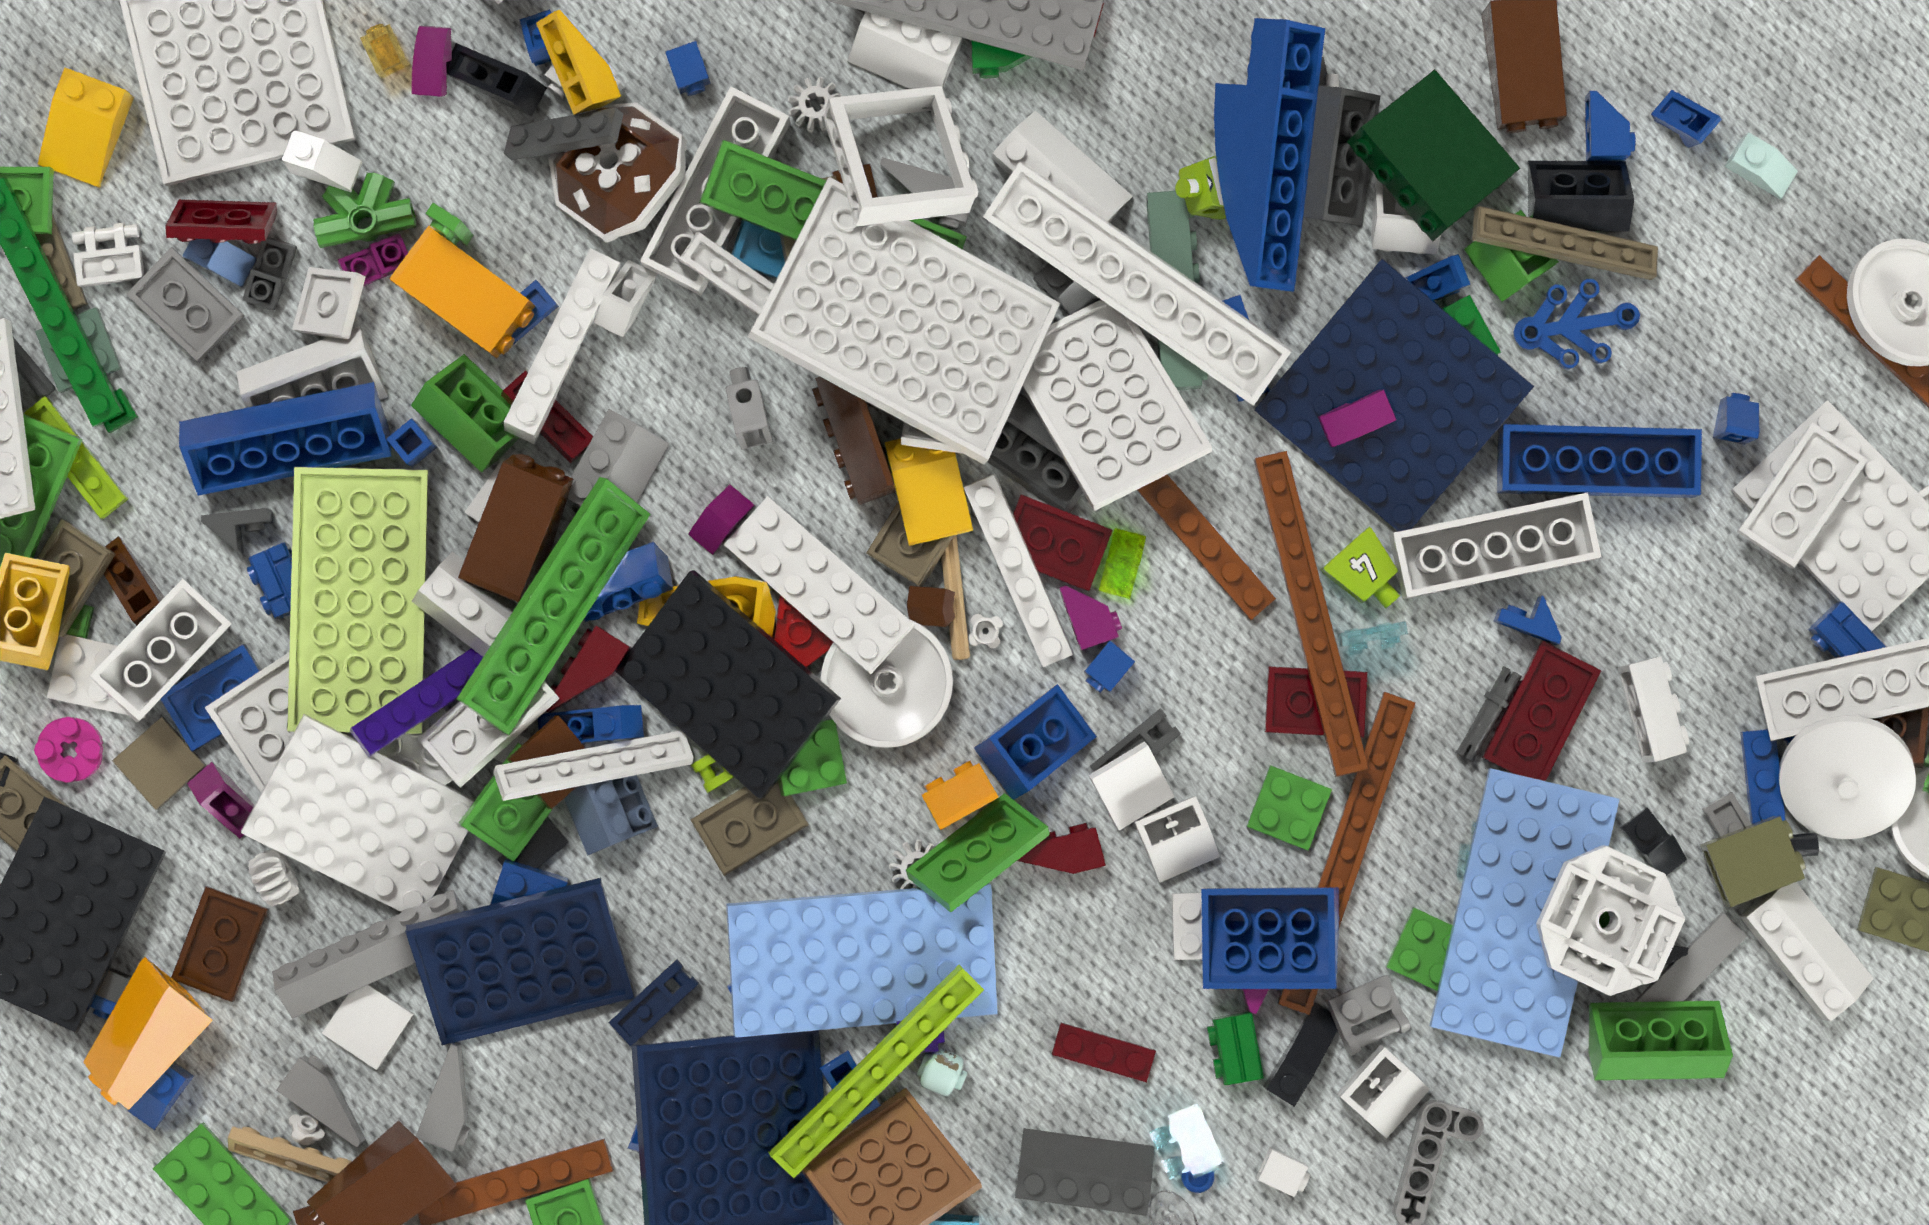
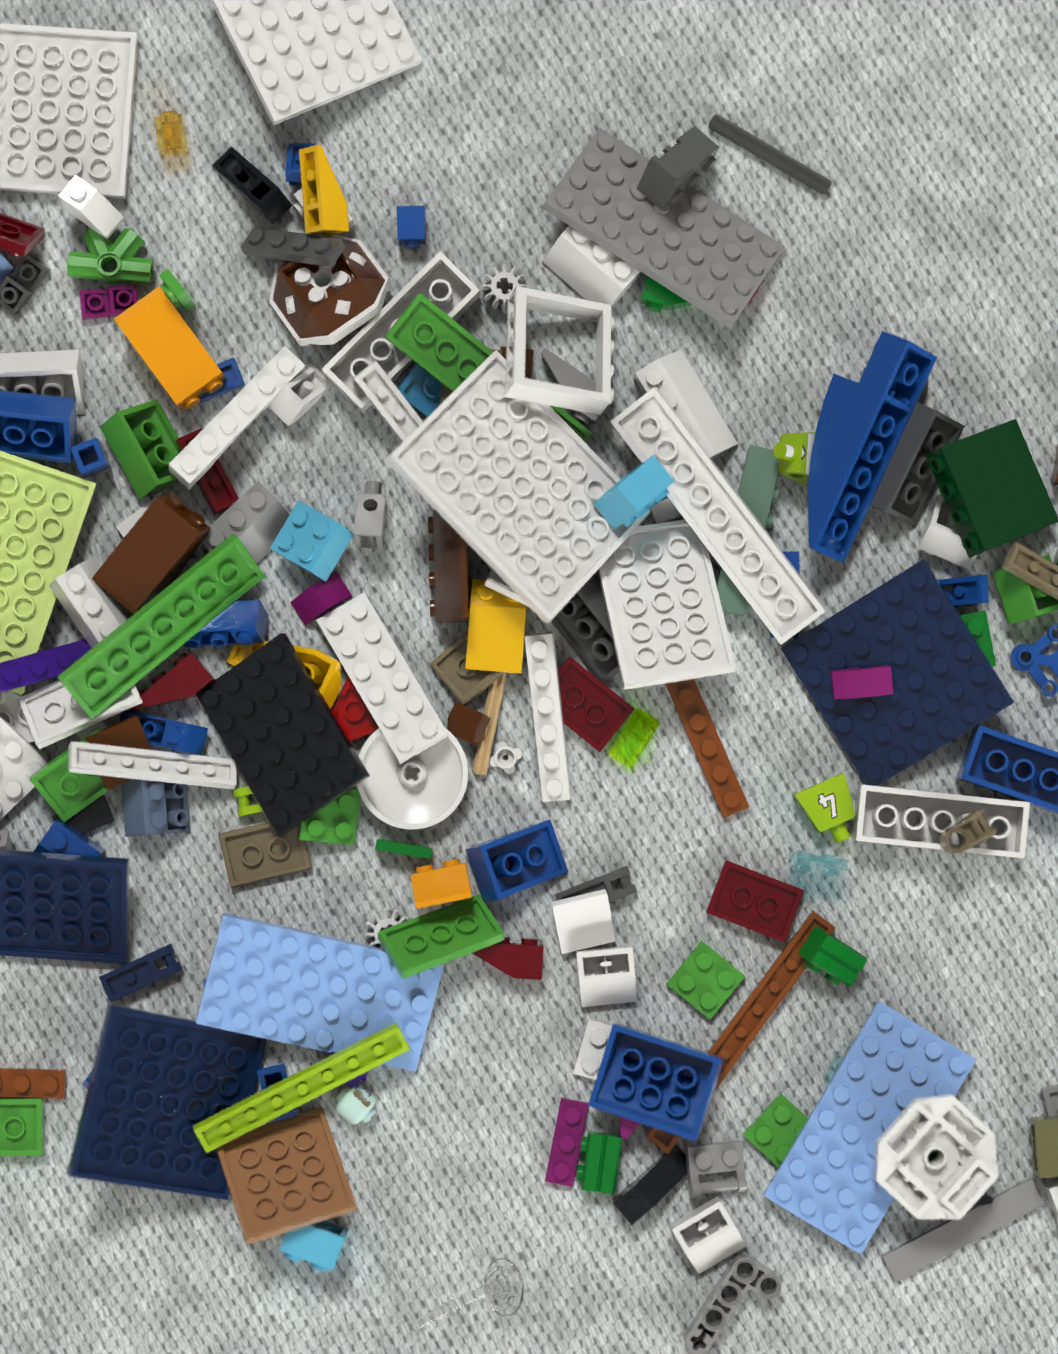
camera: 15 degrees right, 0 degrees up
(328, 303) = (60, 323): white plate -> none
(430, 56) = (205, 152): magenta slope -> none
(690, 457) = (312, 541): none -> medium azure brick
(904, 769) = (404, 848): none -> green tile
(1036, 288) = (635, 493): none -> medium azure brick
(1085, 1172) = (445, 1222): dark grey slope -> none
(1089, 619) = (593, 775): magenta slope -> none
(1103, 1052) = (491, 1130): dark red plate -> none
(1108, 668) = (595, 819): blue brick -> none
(1191, 1038) = (566, 1142): none -> magenta plate
(1195, 1141) = (542, 1225): clear light blue plate -> none
(1198, 1184) = (535, 1255): blue plate -> none
(1283, 1172) = (606, 1275): white brick -> none
(1311, 614) = (773, 829): dark orange plate -> none
(1422, 735) = (832, 956): none -> green brick
(1488, 714) = (892, 955): dark grey pin -> none
(1532, 544) = (971, 829): none -> dark tan piece
(1539, 625) = (956, 896): blue slope -> none
(1541, 713) = (935, 969): dark red plate -> none
(1653, 709) = (1027, 995): white slope -> none
(1653, 842) = (992, 1103): black slope -> none
(1658, 1040) = (945, 1266): bright green slope -> none

